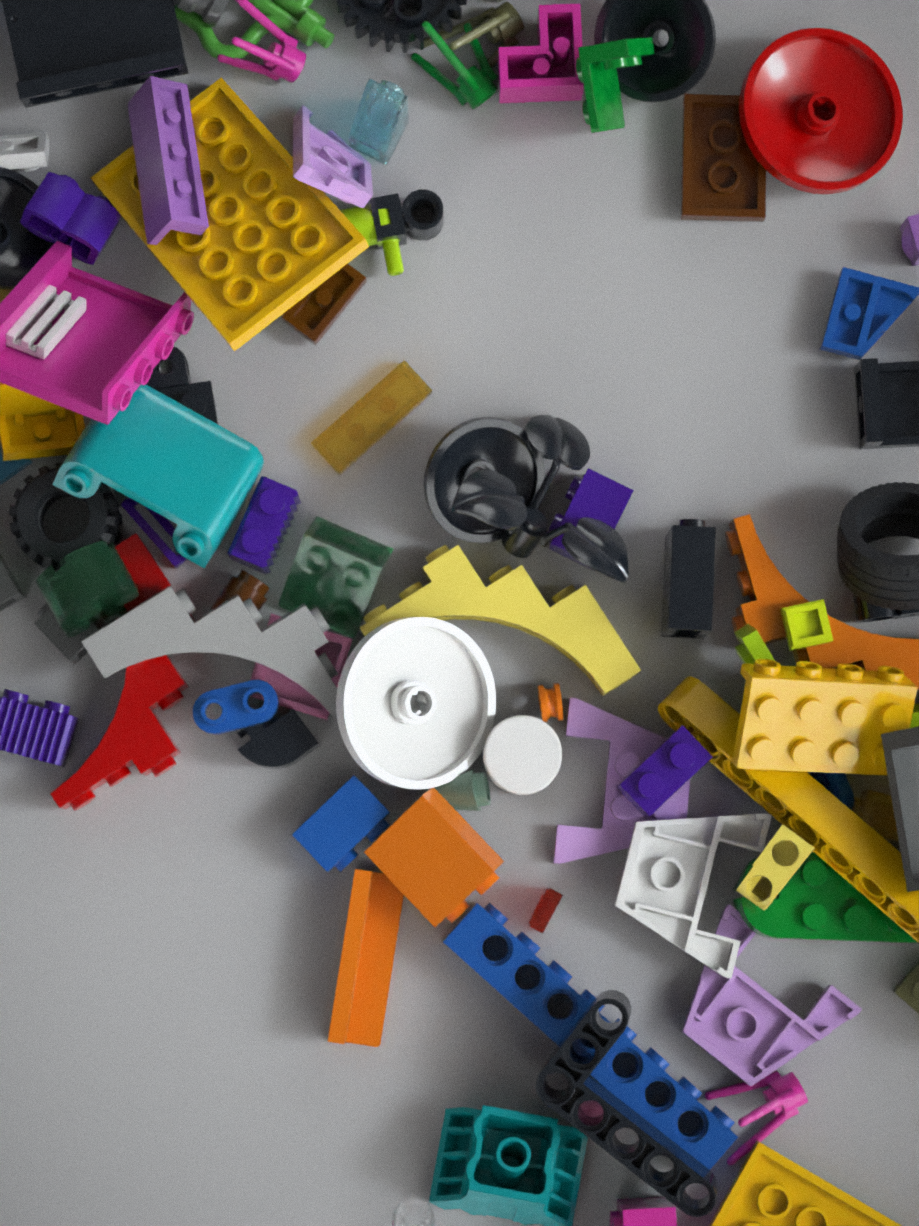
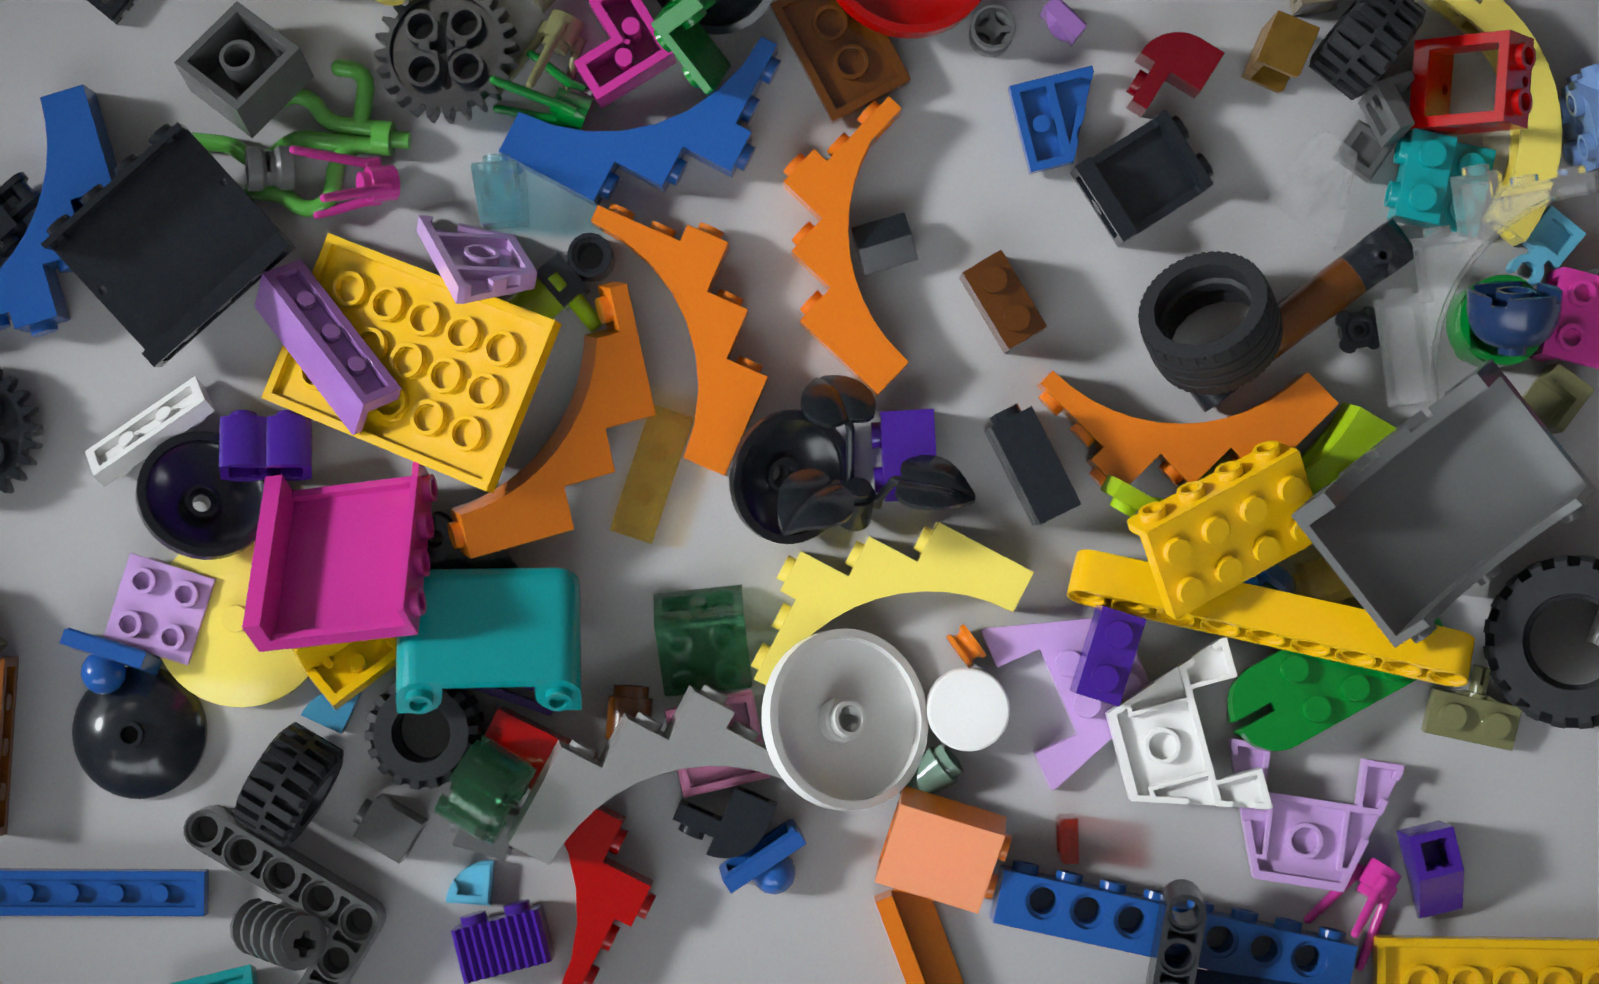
camera: 25 degrees left, 5 degrees up
(31, 670) = (473, 884): none -> medium azure tile
(39, 319) = (301, 536): white tile -> none
(235, 707) = (682, 818): blue plate -> none
(264, 525) = (611, 632): dark purple brick -> none
(283, 787) = (767, 862): none -> blue tile
(323, 305) = (551, 393): reddish brown plate -> none
(342, 825) = (840, 865): blue brick -> none
(374, 328) = (608, 393): none -> orange arch
(497, 269) = (689, 268): none -> orange arch
(521, 160) = (708, 132): none -> blue arch
(645, 267) = (840, 316): none -> orange arch
(669, 336) = (884, 243): none -> black piece
(739, 437) = (1002, 301): none -> reddish brown brick
(774, 867) = (1258, 687): light yellow leg -> none
(806, 625) = (1162, 445): neon yellow tile -> none
(838, 1110) = (1433, 867): none -> dark purple slope
(856, 206) = (992, 21): none -> dark grey wheel

